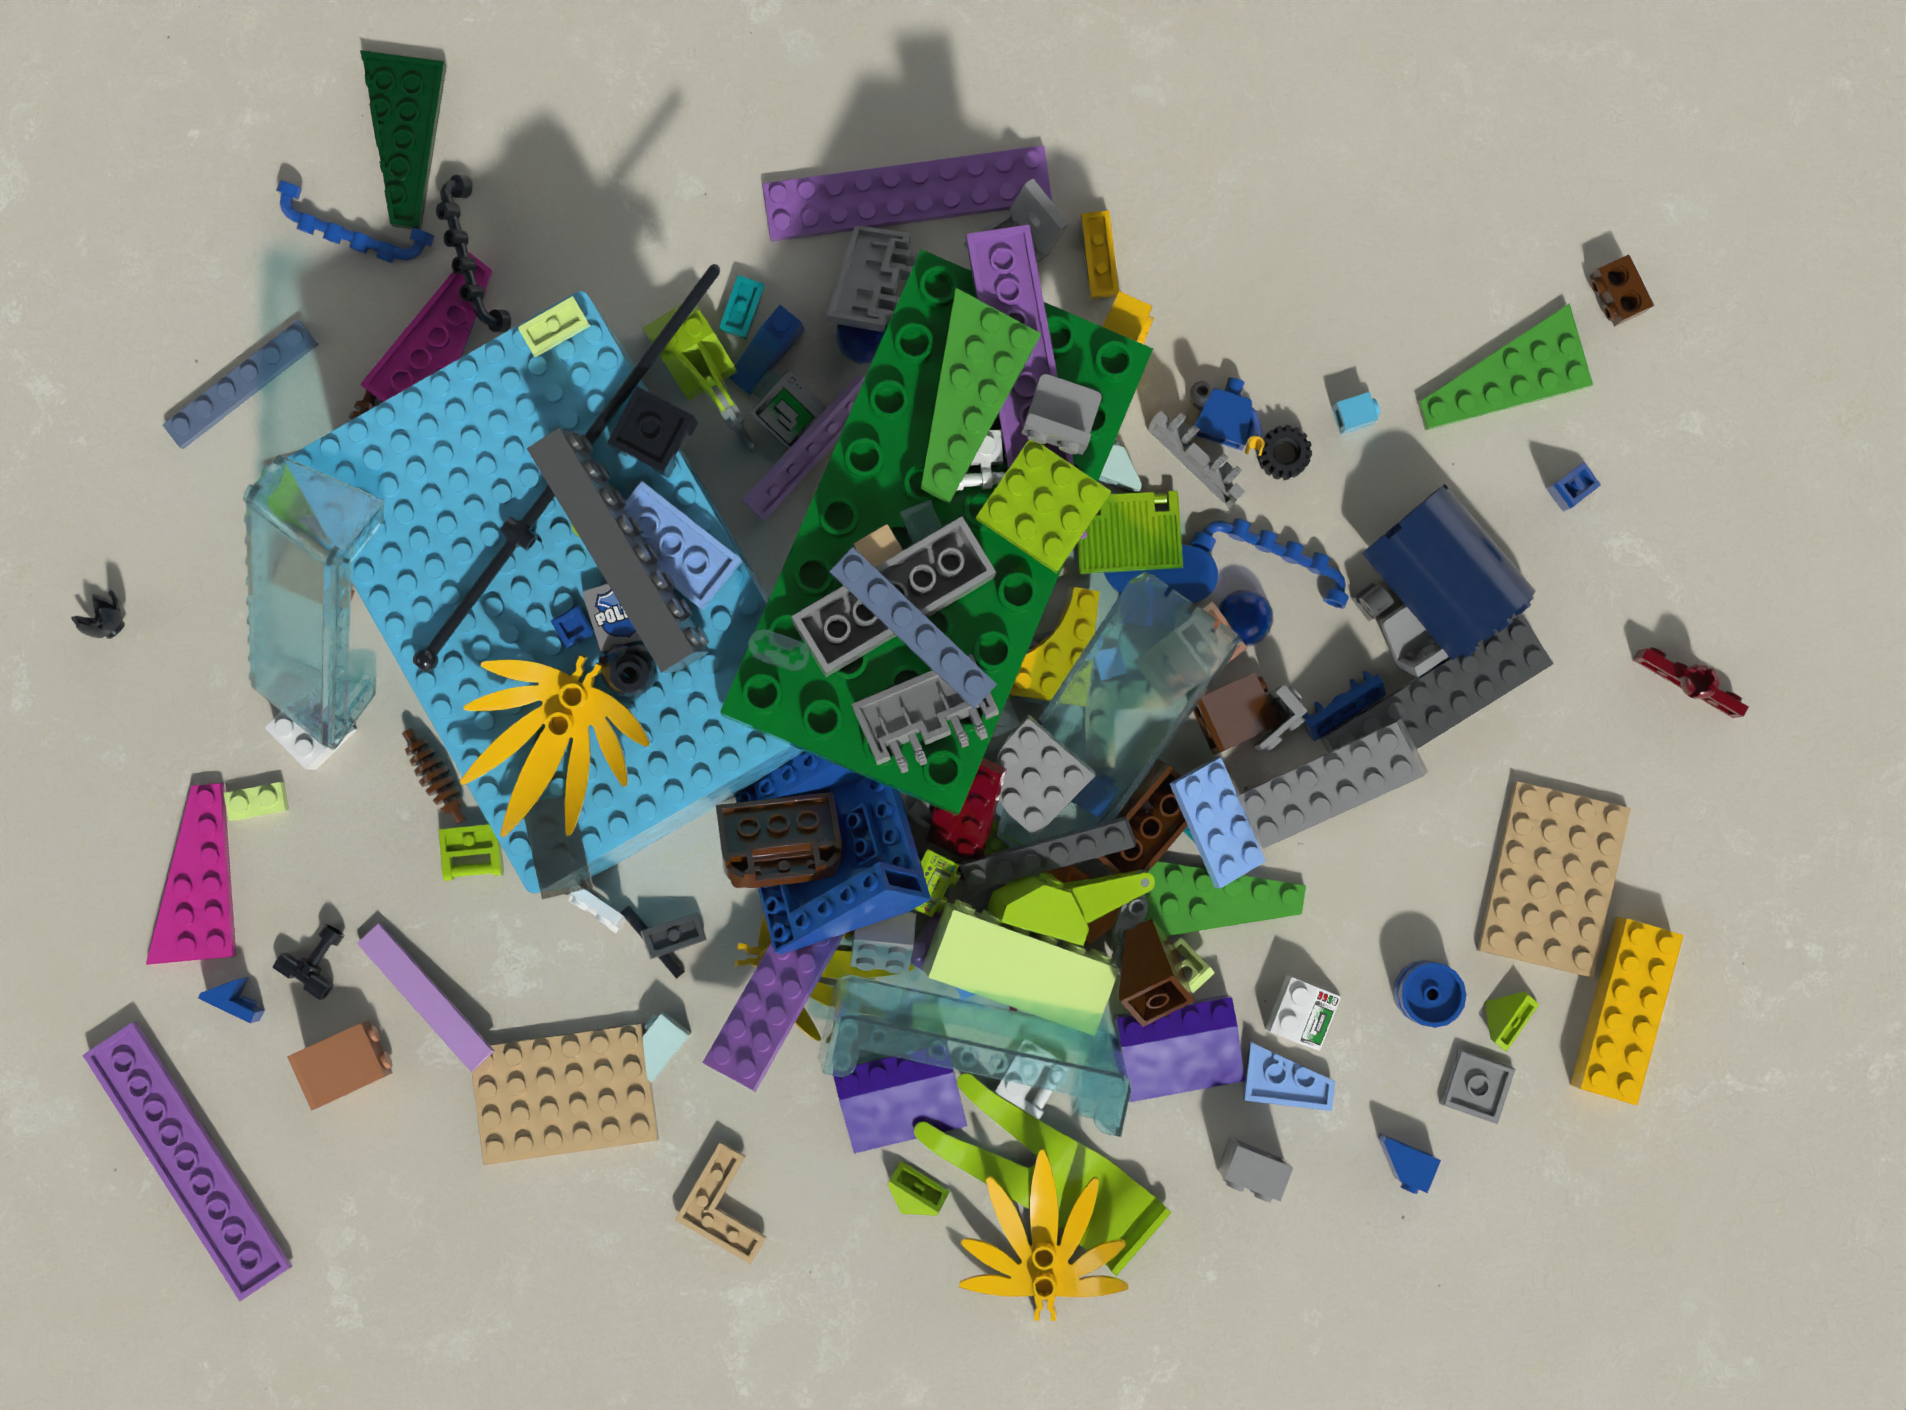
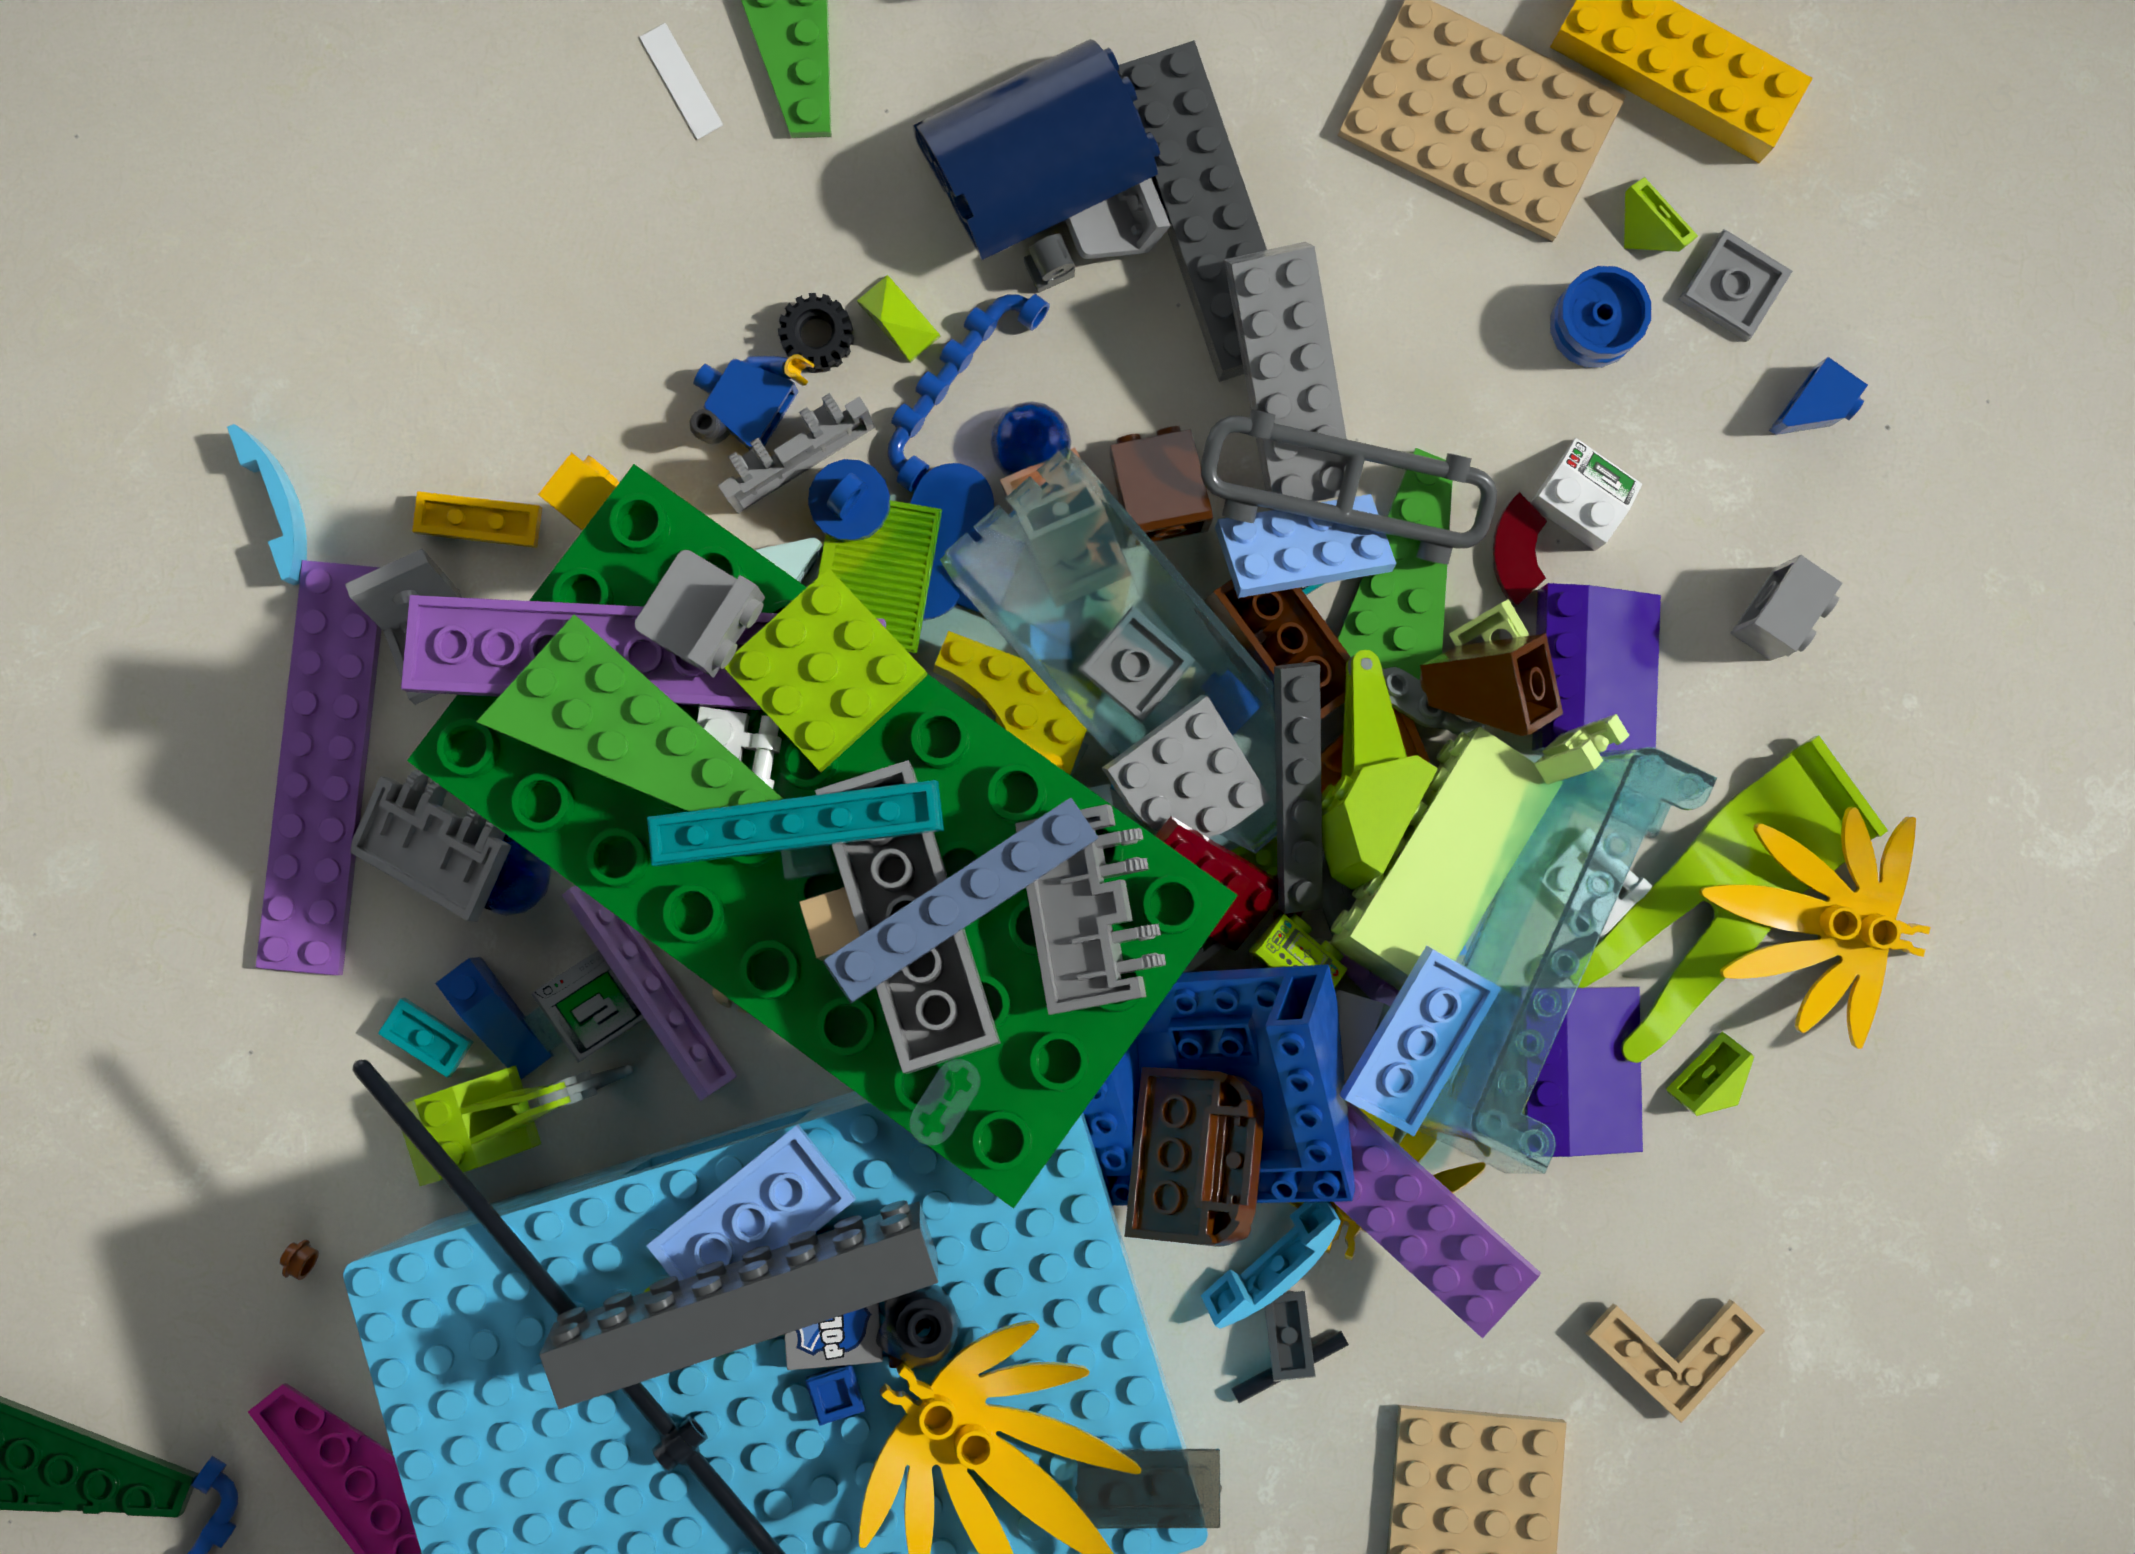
camera: 85 degrees left, 0 degrees up
(461, 187) = (151, 1402): black bar -> none
(554, 326) = (386, 1324): yellowish green plate -> none
(575, 260) = (298, 1259): none -> dark orange plate
(602, 911) = (1239, 1426): white plate -> none
(652, 431) = (577, 1214): black panel -> none
(662, 1042) = (1433, 1386): light aqua slope -> none
(716, 917) = (1277, 1270): none -> medium azure slope
(893, 973) = (1420, 1041): none -> light blue plate
(937, 509) = (795, 823): none -> teal tile
(1051, 136) = (292, 546): none -> medium azure slope
(1106, 724) = (1136, 665): none -> light grey tile
(1119, 1041) = (1579, 749): none -> yellowish green brick
(1173, 502) = (849, 500): none -> blue tile
(1241, 912) = (1243, 501): none -> dark grey bar
(1252, 971) = (1515, 551): none -> dark red tile
(1284, 1082) = (1675, 540): light blue wing -> none
(1289, 703) = (1165, 408): light grey bracket -> none
(1309, 507) = (898, 318): none -> lime slope
(1344, 706) = (1183, 336): blue plate -> none
(1356, 412) = (784, 222): medium azure brick -> none
(1438, 318) = (681, 81): none -> white sticker

